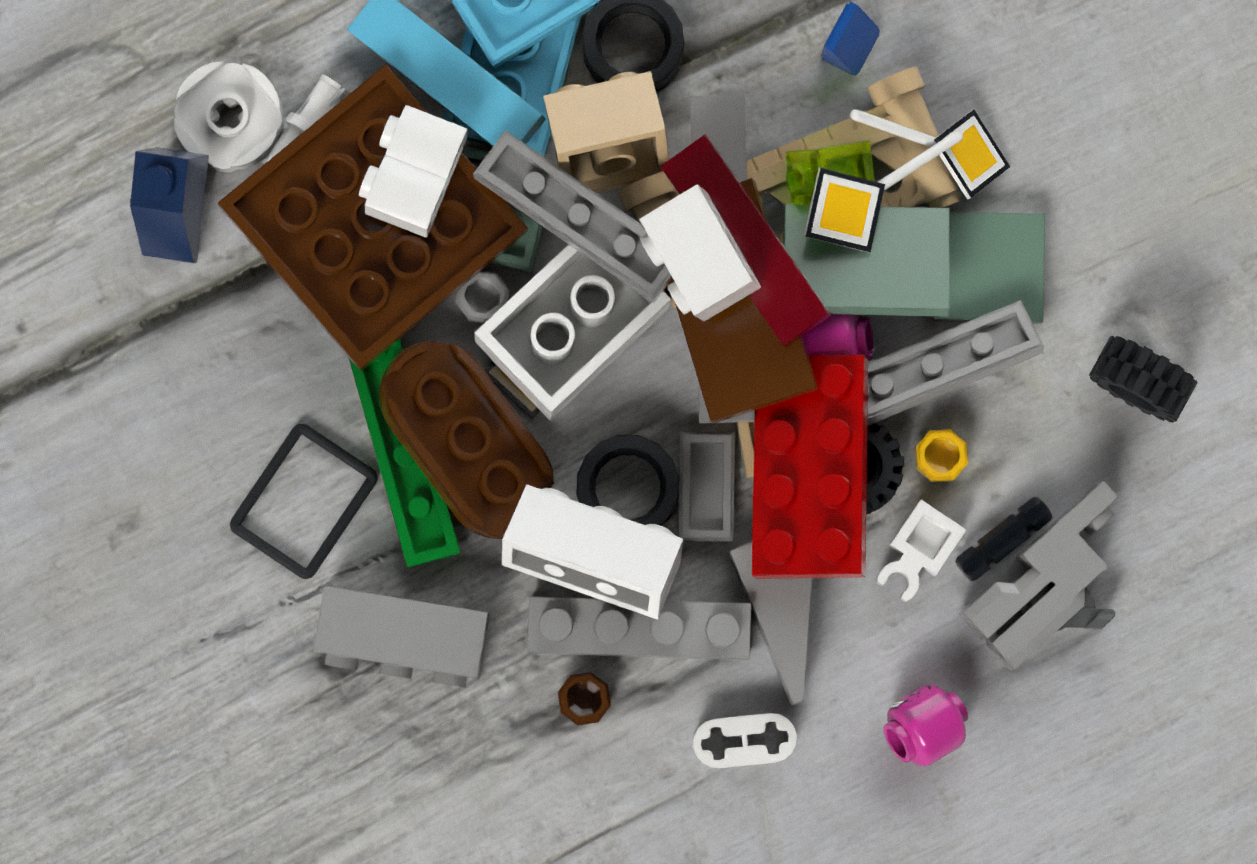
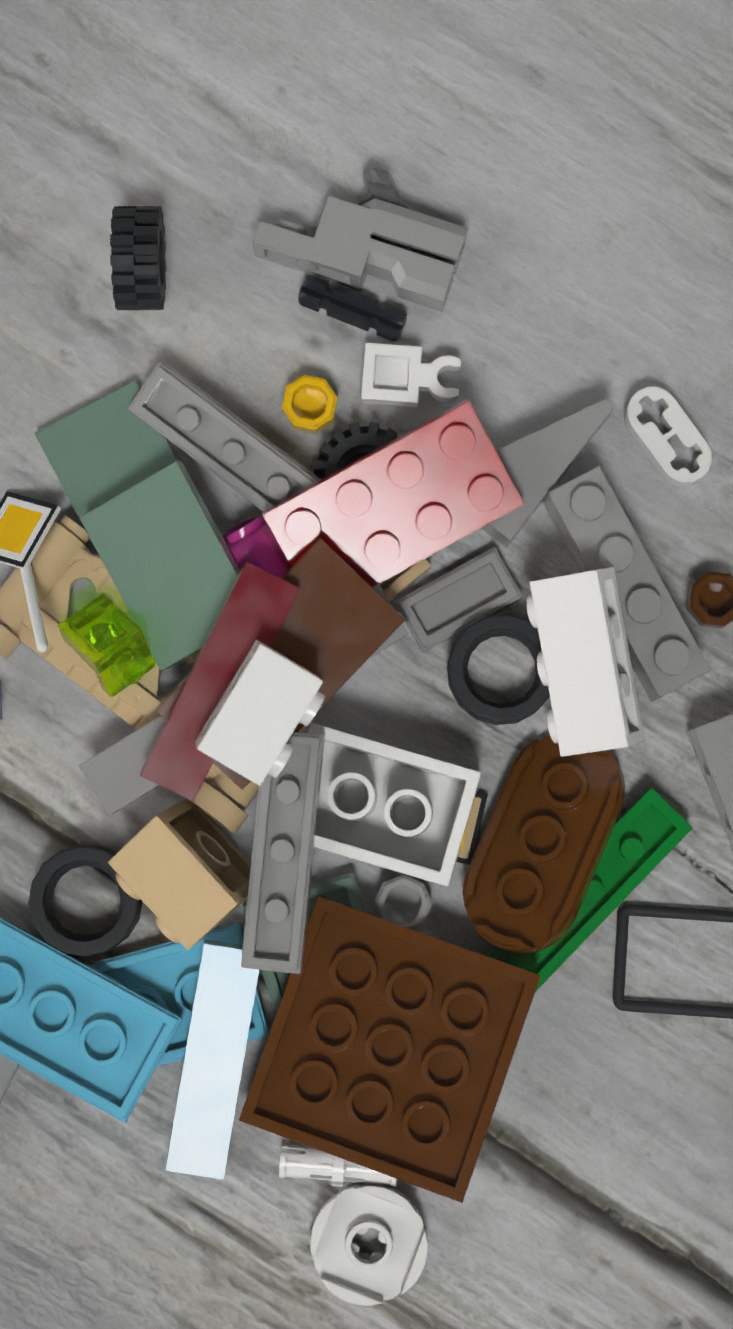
camera: 115 degrees left, 0 degrees up
(168, 202) = (483, 1252): dark blue slope -> none
(414, 170) = (327, 1032): white brick -> none
(848, 207) = (131, 607): piece -> none
(926, 725) = (561, 281): dark pink head -> none

